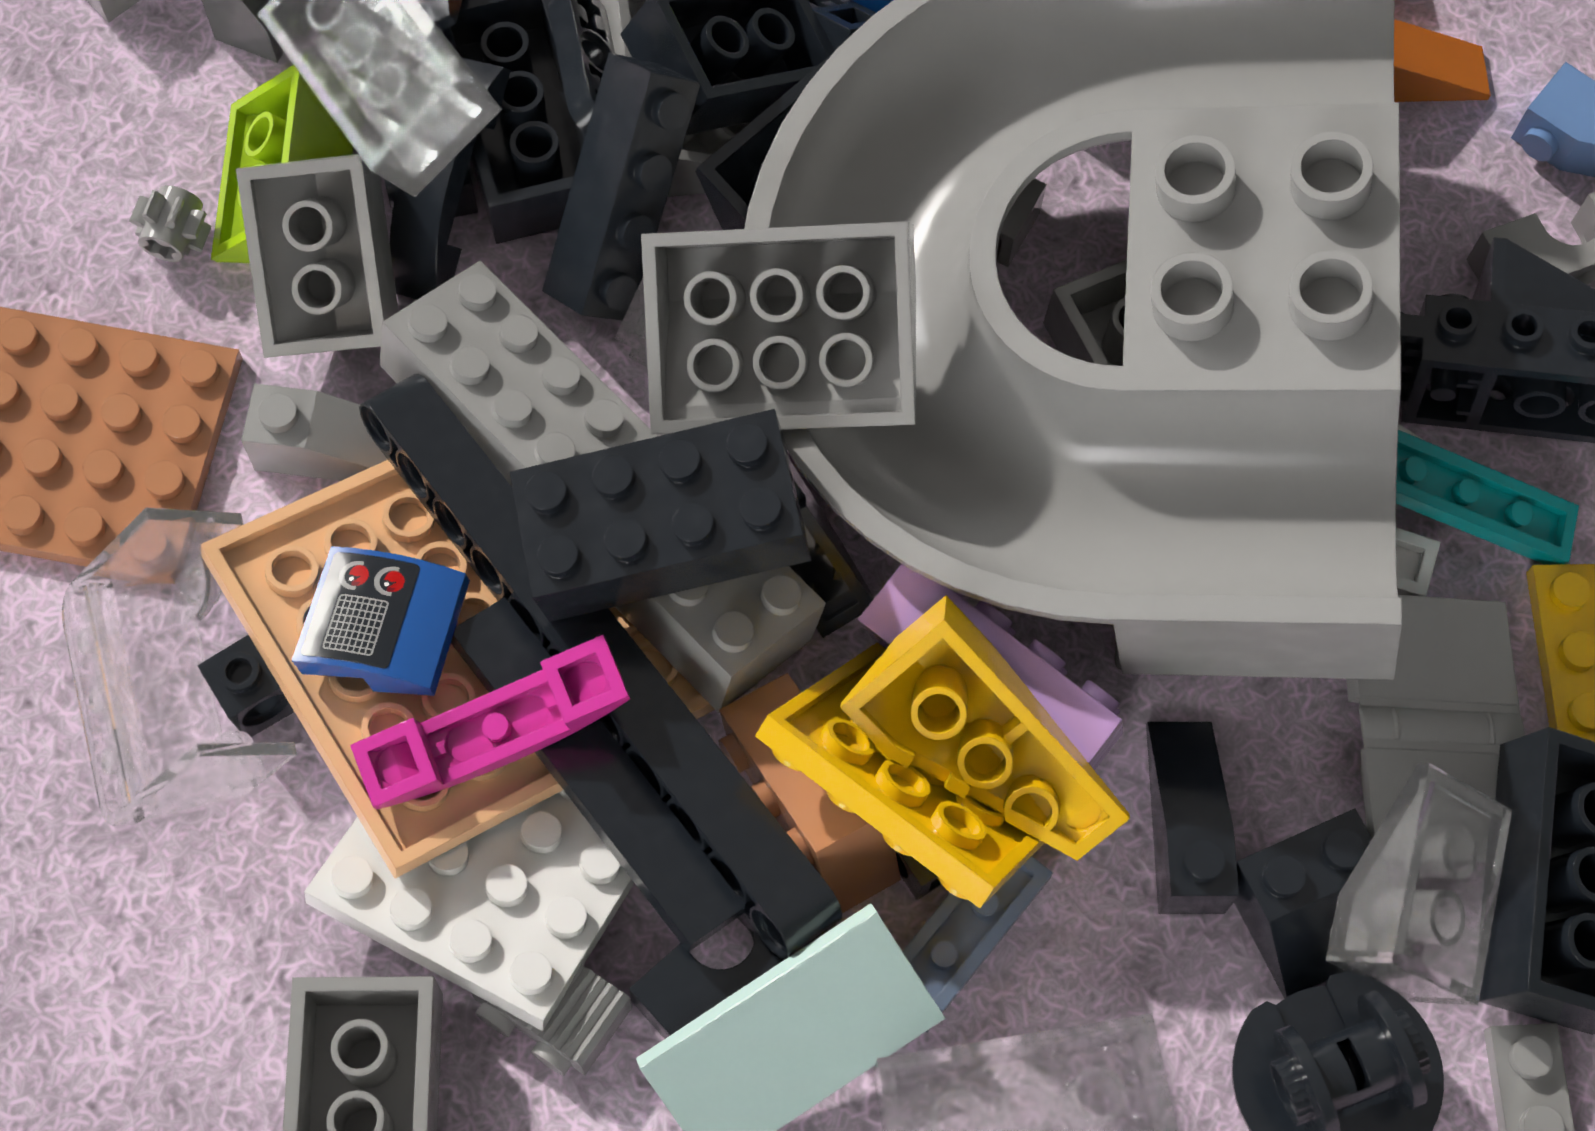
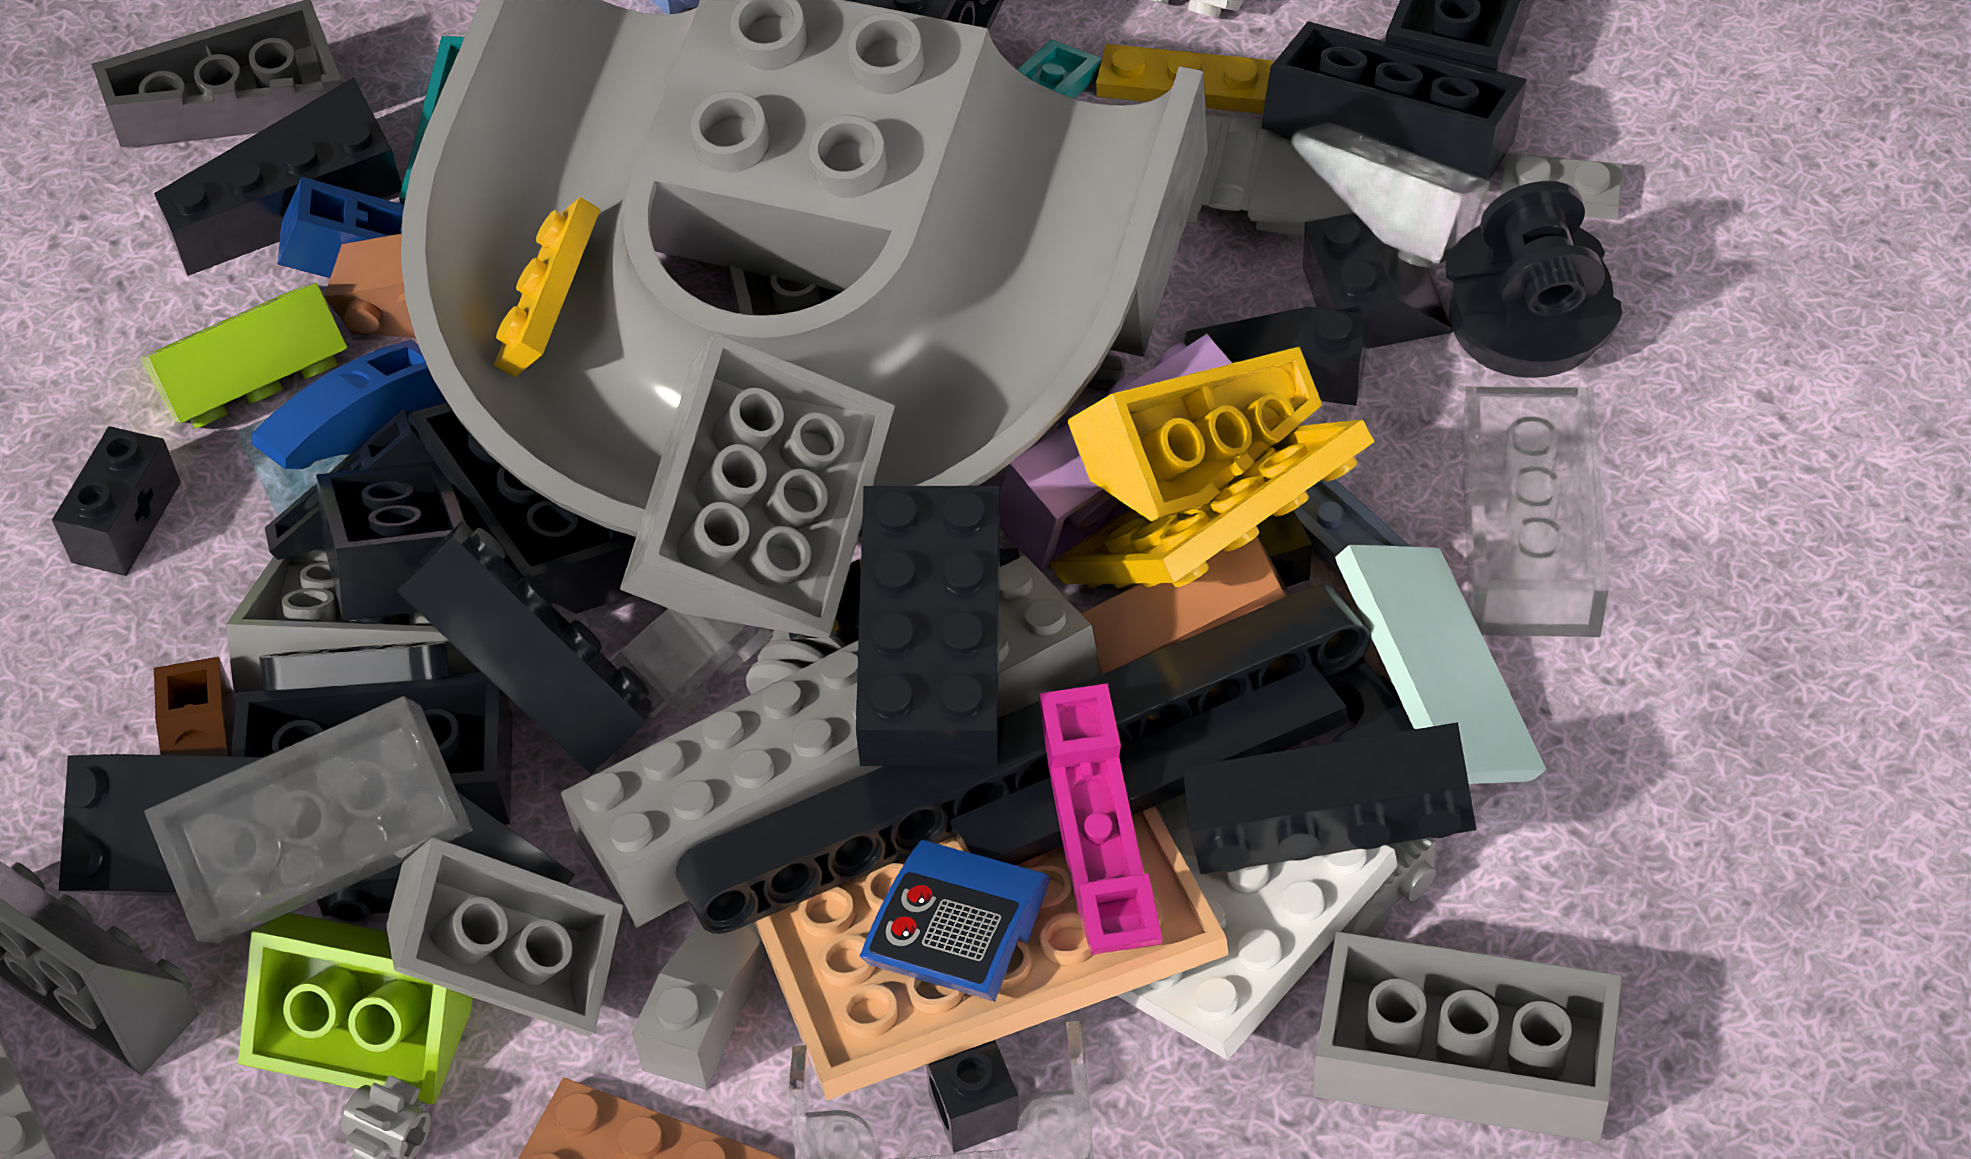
camera: 70 degrees left, 15 degrees down
(568, 946) = (1328, 799): none -> black brick
(1022, 83) = (545, 286): none -> yellow plate

